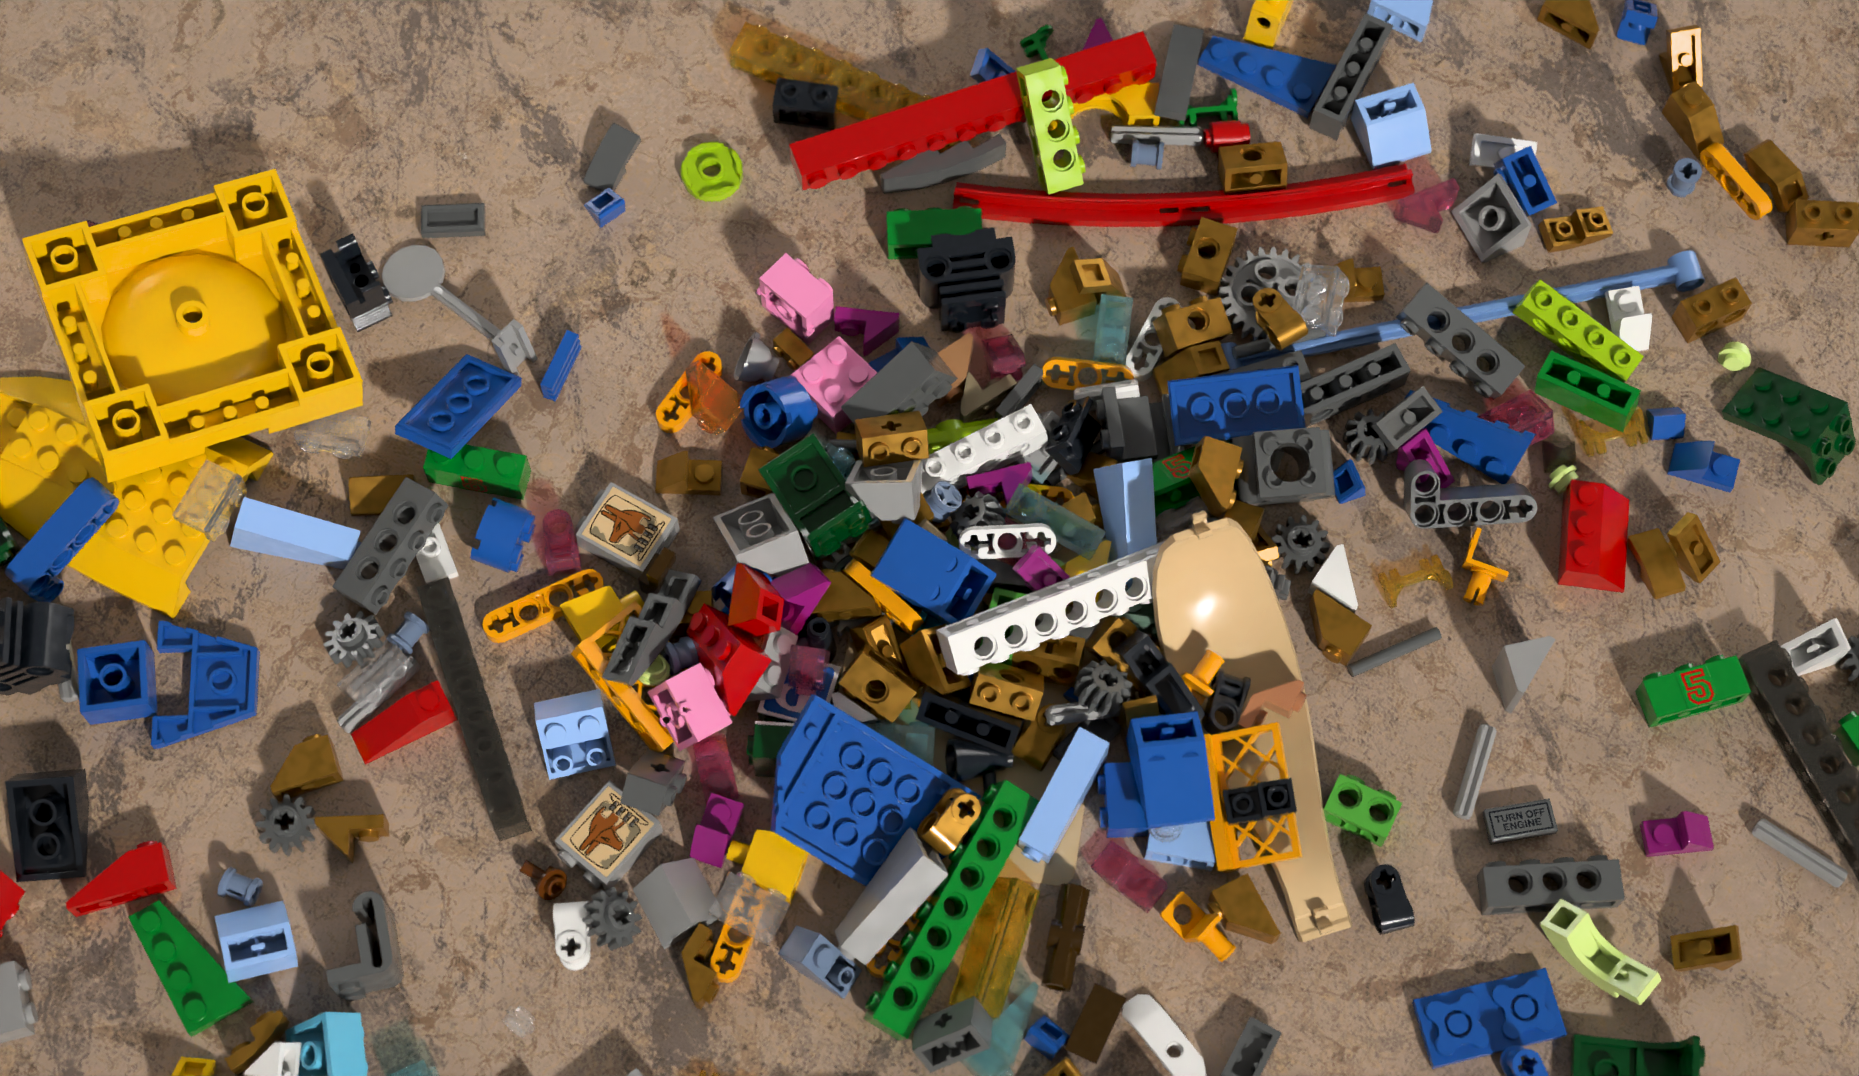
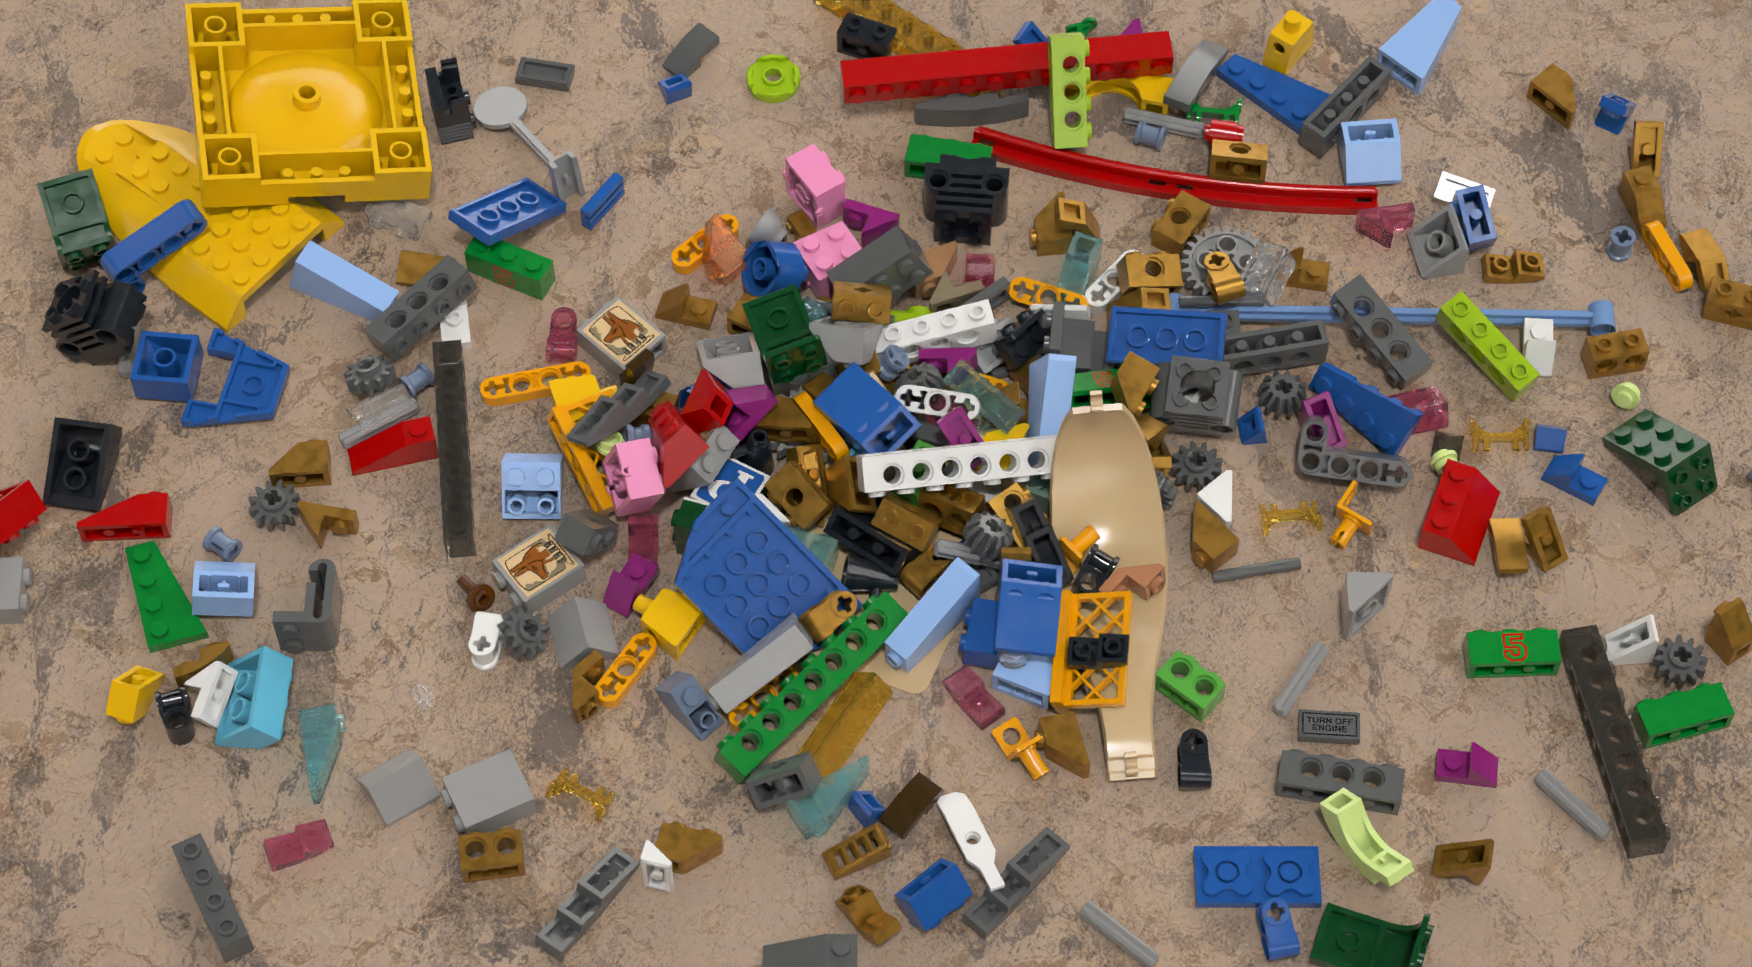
camera: 15 degrees right, 10 degrees down
(211, 500) = (282, 239): clear bracket -> none
(502, 535) = (516, 319): blue brick -> none
(750, 907) = (641, 647): clear bracket -> none
(808, 669) = (742, 461): clear pink slope -> none
(1065, 937) = (904, 731): dark brown piece -> none
(1407, 418) = (1314, 379): dark grey slope -> none
(1587, 391) = (1483, 393): green brick -> none

